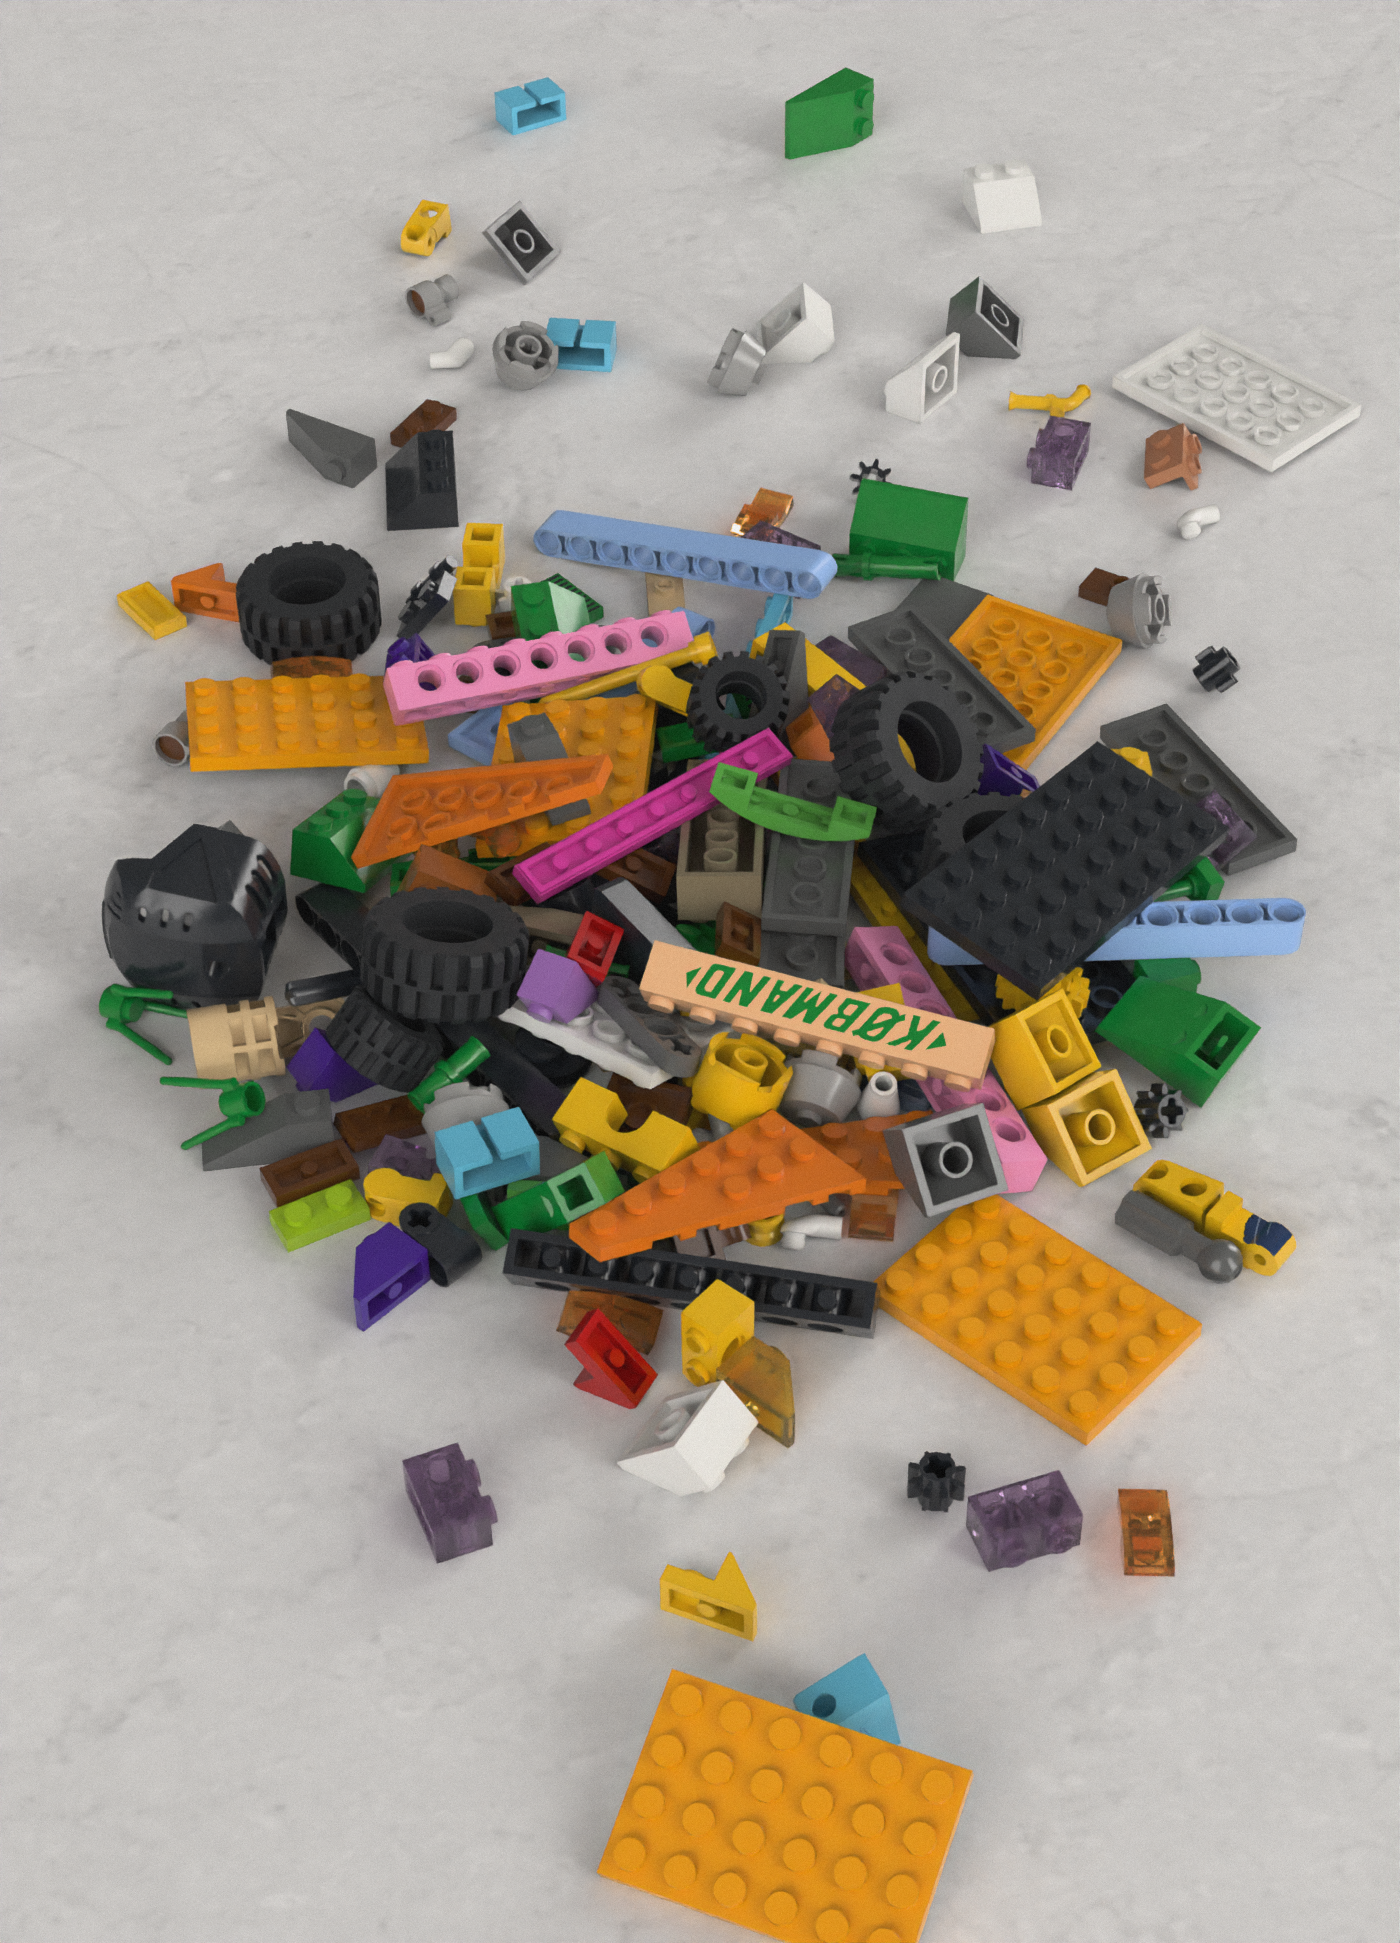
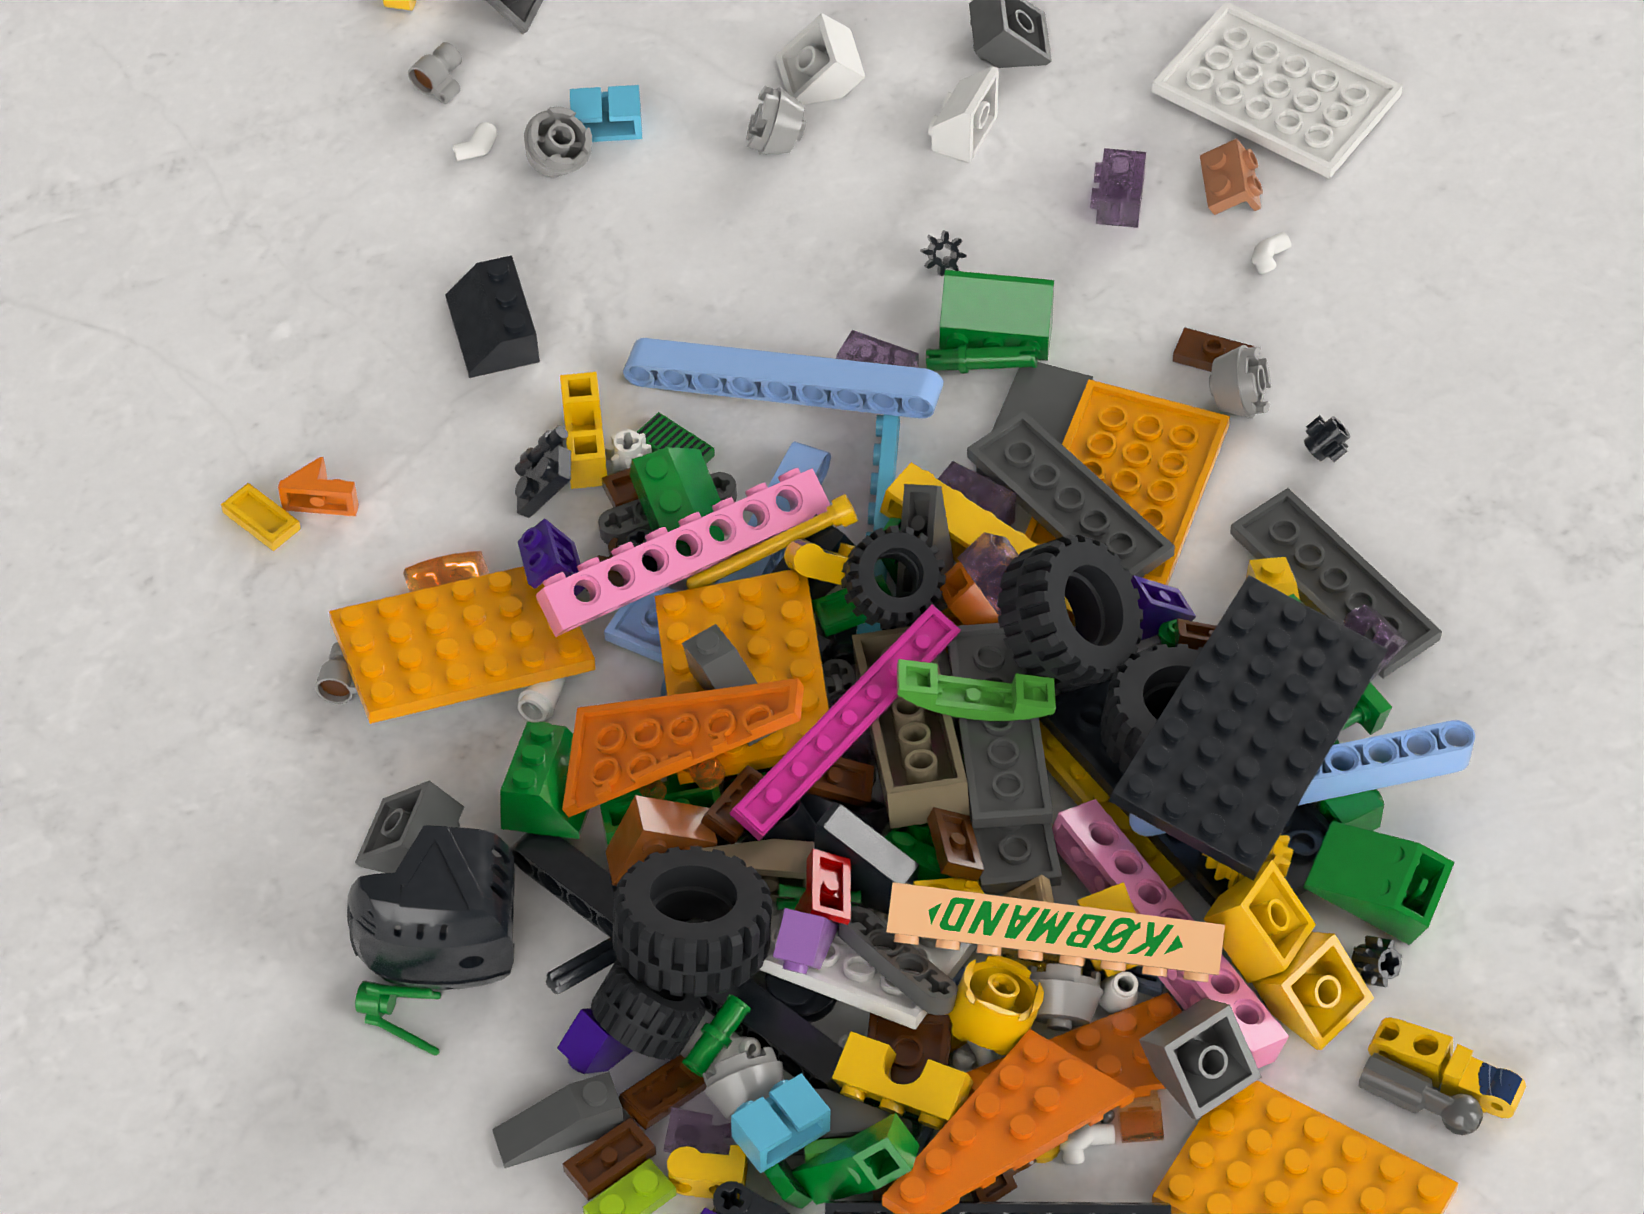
camera: 10 degrees left, 10 degrees up
(236, 1102) = (524, 1098): green plant -> none
(251, 1037) = (515, 1024): tan cylinder -> none
(308, 603) = (418, 460): black tyre -> none
(332, 449) = (390, 288): dark grey slope -> none
(427, 417) = (470, 239): reddish brown plate -> none
(663, 593) = (770, 426): tan plate -> none
(767, 506) = (843, 307): clear orange slope -> none
(1050, 402) = (1094, 120): yellow piece -> none

